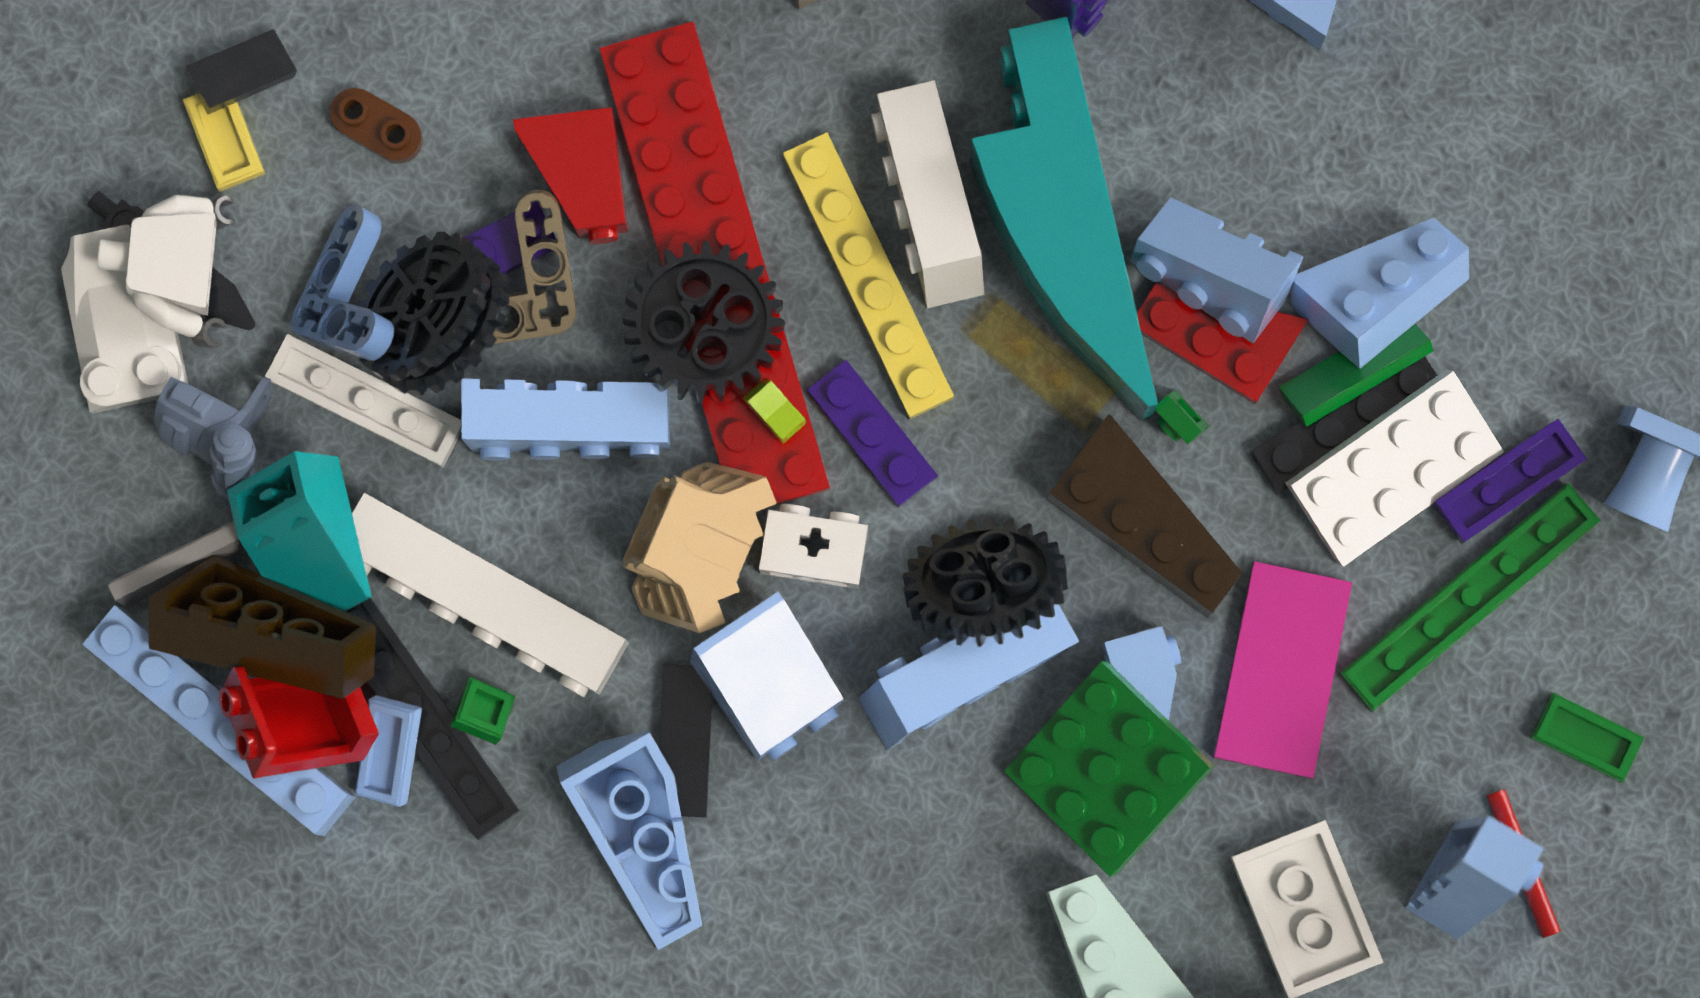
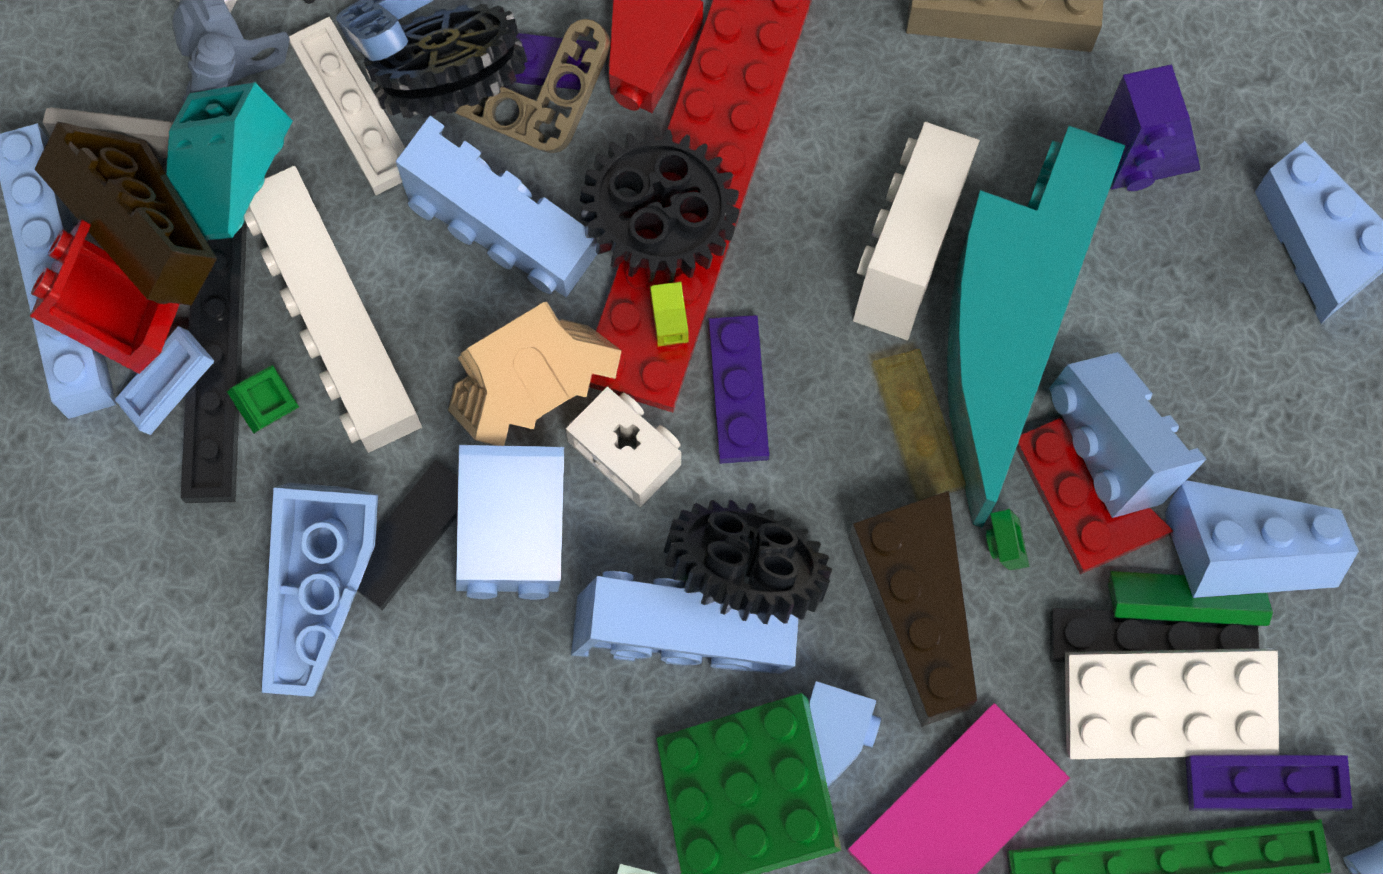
camera: 30 degrees right, 10 degrees down
(868, 276) = (821, 266): light yellow plate -> none

